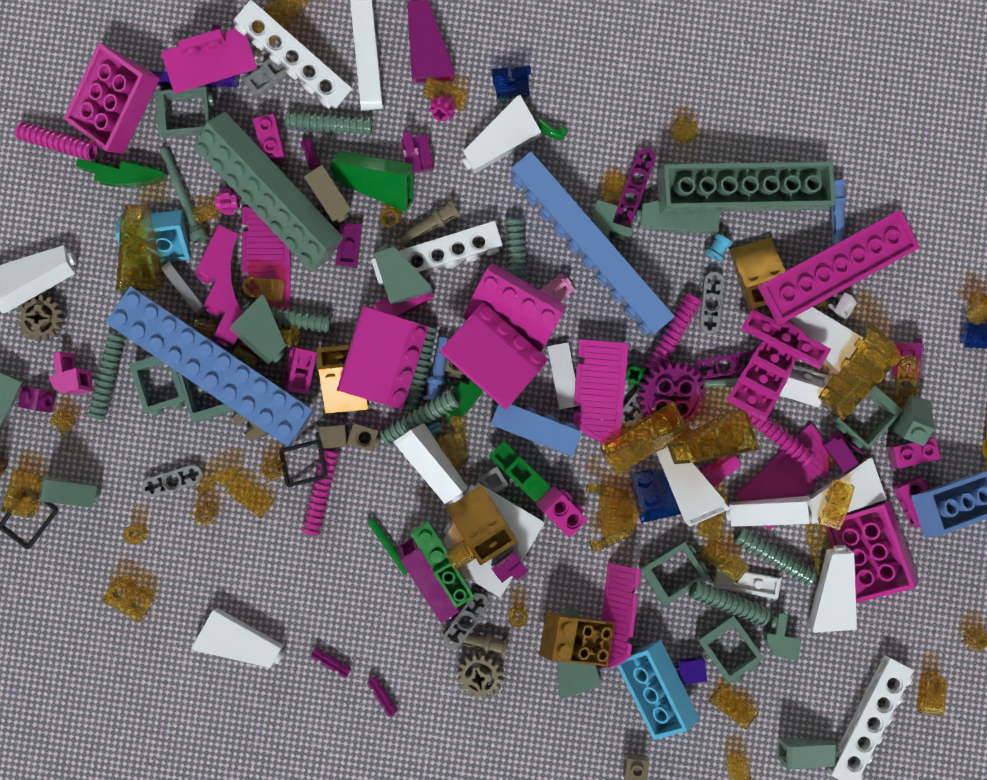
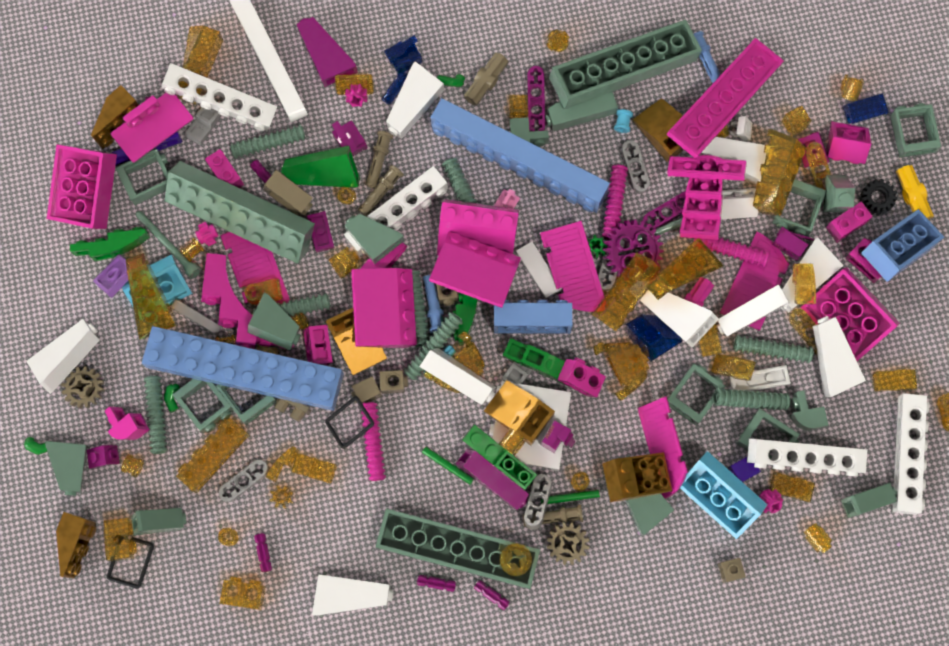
camera: 20 degrees left, 10 degrees down
(56, 141) = (47, 237): dark pink piece -> none
(108, 211) = (113, 276): none -> medium lavender tile
(128, 358) = (169, 399): none -> green arm
(149, 442) = (212, 455): none -> clear yellow brick
(166, 561) = (263, 553): none -> magenta axle
(175, 26) = (110, 118): none -> pearl gold slope
(265, 472) = (320, 434): clear yellow gear -> none
(361, 289) = (344, 262): none -> clear yellow brick
(365, 639) = (450, 547): none -> sand green brick
(425, 669) = (506, 556): none -> clear yellow gear
(445, 180) = (380, 151): none -> dark tan pin
(488, 114) = (394, 88): none -> clear blue axle
(488, 624) = (572, 497): none -> green bar
(590, 142) = (486, 79): none -> dark tan piece
(706, 713) = (773, 500): none -> dark pink gear
(716, 661) = (855, 458): none -> white brick
(887, 637) = (894, 380): none -> clear yellow slope
(904, 320) = (796, 120): none -> clear yellow brick
(950, 365) = (848, 143): none -> dark pink slope
(968, 441) = (890, 198): none -> black tyre

